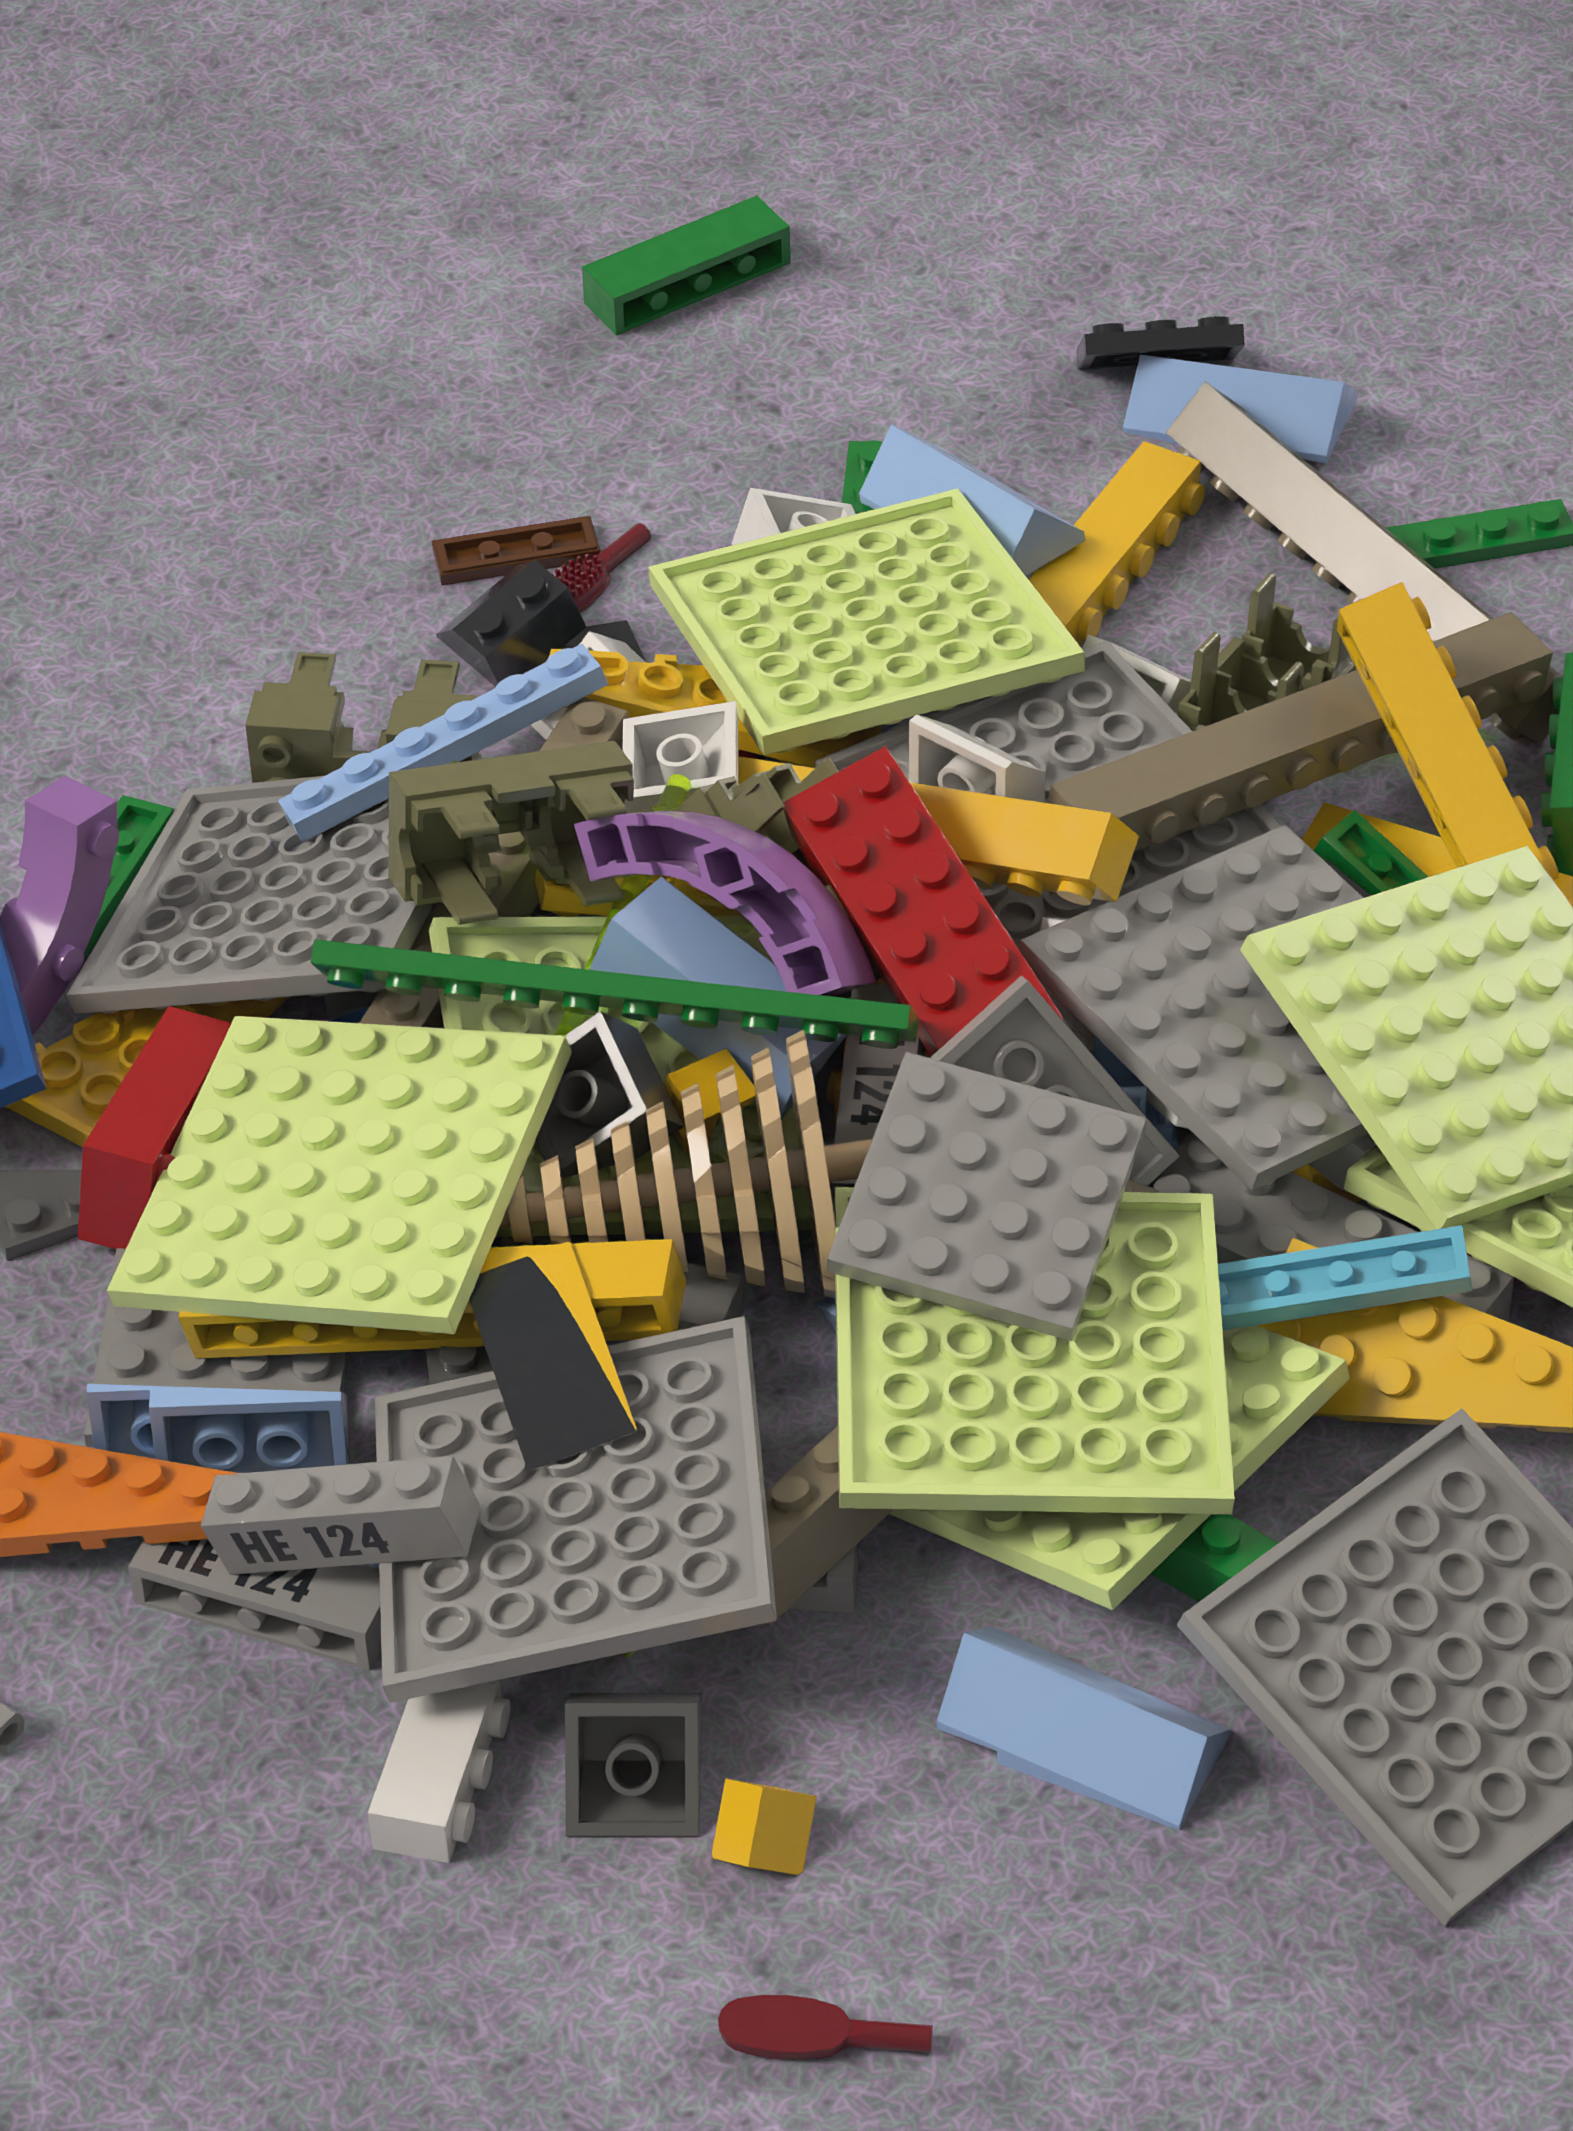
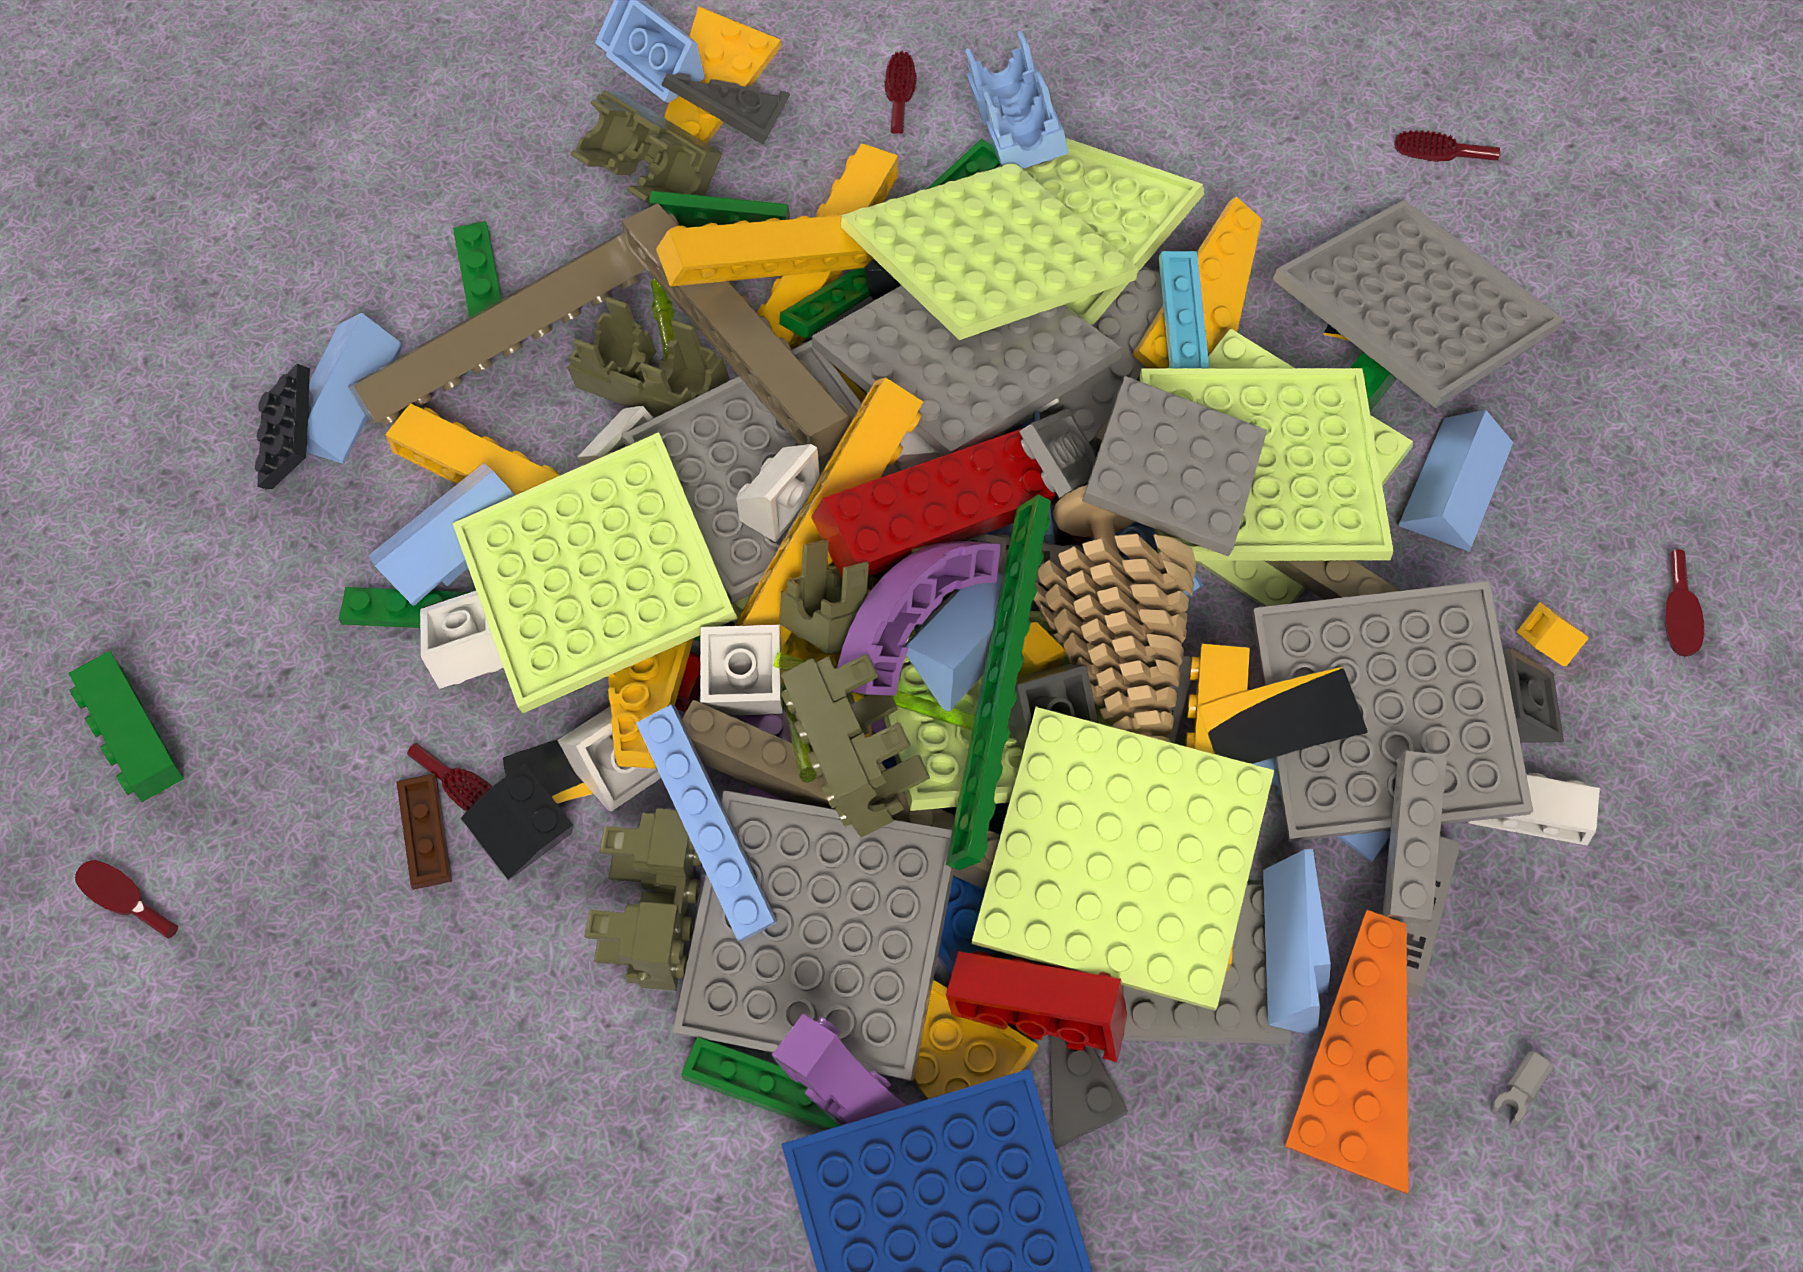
camera: 90 degrees left, 15 degrees up
(444, 294) = (120, 895): none -> dark red piece

